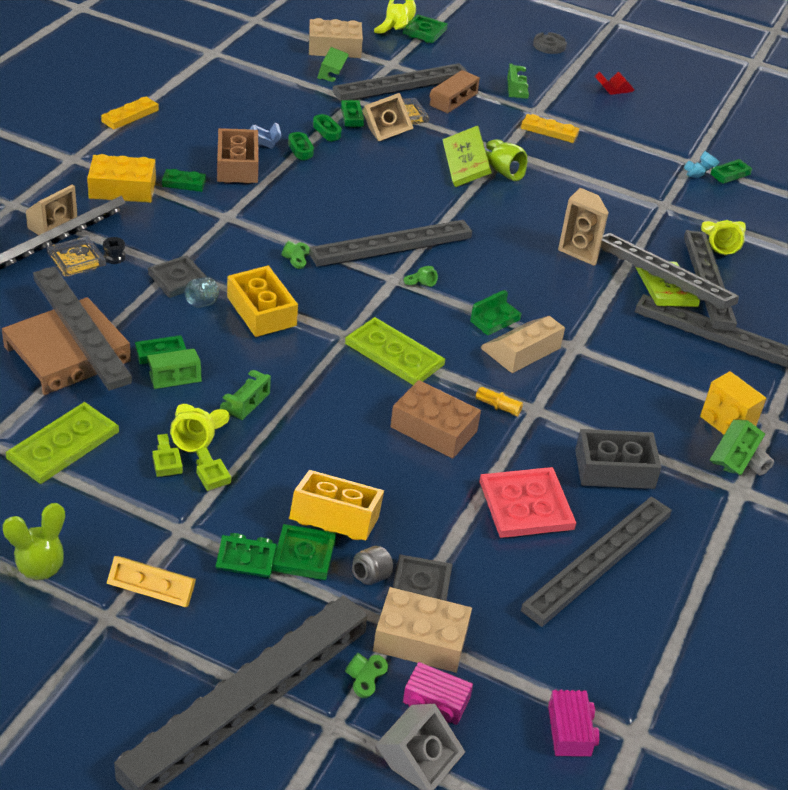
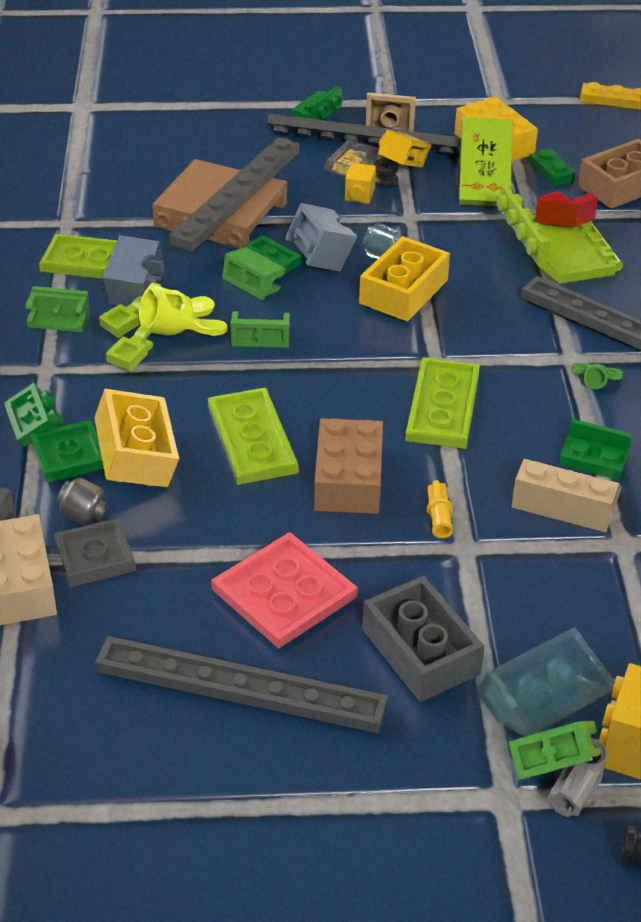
camera: 65 degrees right, 0 degrees up
(107, 225) = (403, 148): none -> yellow brick
(116, 267) = (360, 183): none -> yellow brick
(119, 490) = (58, 309): none -> bright green hinge
(128, 424) = (132, 269): none -> sand blue piece
(164, 200) = (484, 159): none -> lime tile
(175, 275) = (406, 220): dark grey tile -> none
(177, 313) = (321, 237): none -> sand blue piece
(255, 199) = (562, 211): none -> red slope
(276, 218) = (559, 250): none -> lime hinge
(296, 253) = (521, 274): bright green piece -> none
(356, 452) = (252, 436): none -> lime tile
(684, 428) = (545, 684): none -> clear light blue slope

